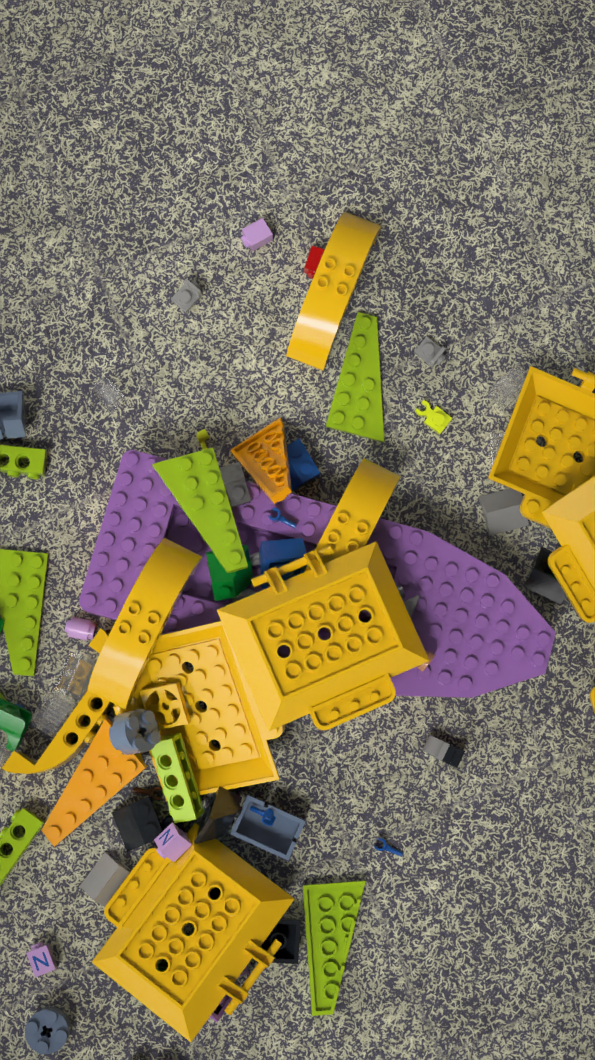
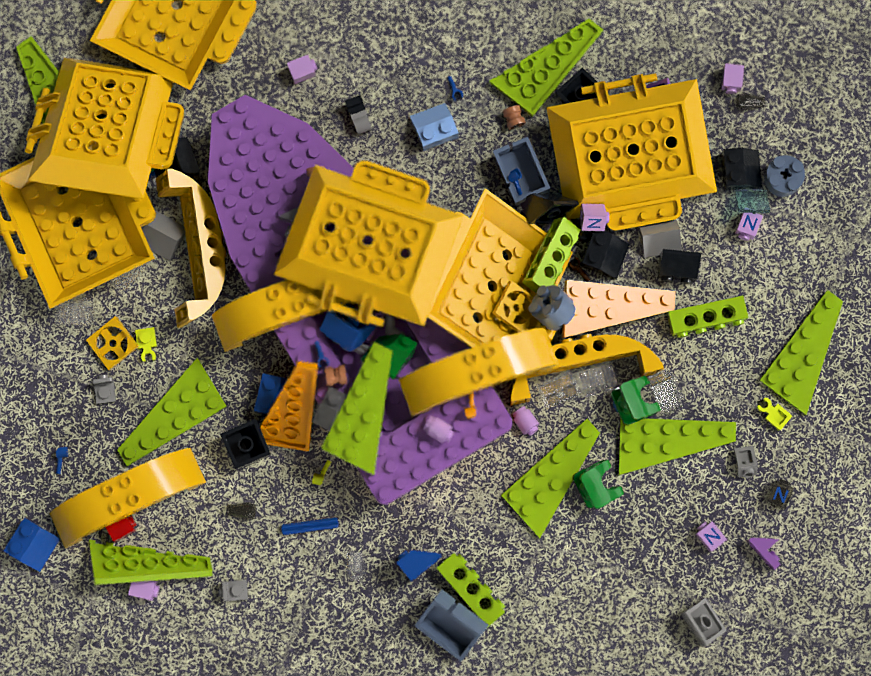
camera: 135 degrees left, 0 degrees up
(55, 982) = (752, 201): none -> clear light blue piece
(63, 439) = (416, 562): none -> blue slope
(67, 869) = (678, 266): none -> black slope
(90, 1002) = (741, 168): none -> black slope
(121, 584) = (470, 411): none -> light orange hand
(132, 545) = (439, 429): none -> lavender brick
(175, 395) = (308, 526): none -> blue axle
(237, 359) = (242, 510): none -> clear smoke cone
(254, 513) = (336, 375): none -> nougat wheel
(276, 247) = (138, 564): none -> lime wing
(281, 406) = (245, 444): none -> black slope
(317, 869) = (513, 116): none -> nougat wheel
(371, 190) = (31, 544): none -> blue slope
(375, 800) = (434, 126): none -> light blue slope
(416, 274) = (60, 453): none -> blue hand
(433, 504) = (203, 242): none -> yellow slope
(467, 394) = (132, 345): none -> yellow piece
(525, 746) = (302, 69): none -> lavender brick

